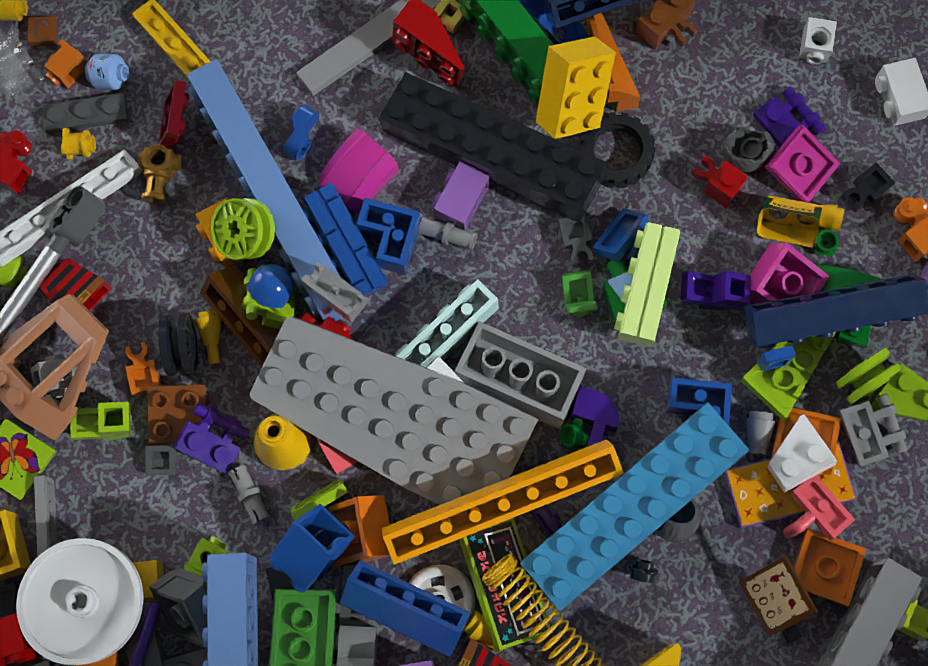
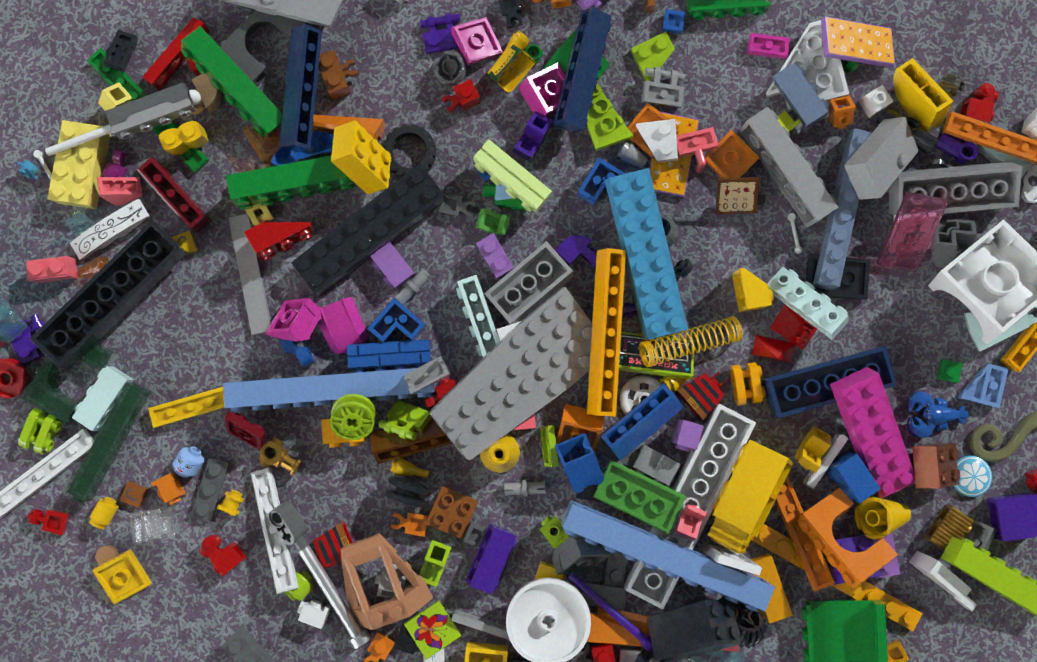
camera: 70 degrees left, 10 degrees up
(137, 493) = (491, 558): none -> dark purple brick
(206, 446) = (483, 501): dark purple plate -> none
(271, 286) = (399, 415): blue hair -> none
(335, 110) = (295, 320): none -> dark pink slope
(535, 314) = (495, 256): none -> medium lavender brick
(574, 435) = (582, 269): green plate -> none
(620, 234) = (467, 177): blue tile -> none
(776, 358) = (595, 122): blue tile -> none
(868, 375) = (631, 72): lime wheel -> none

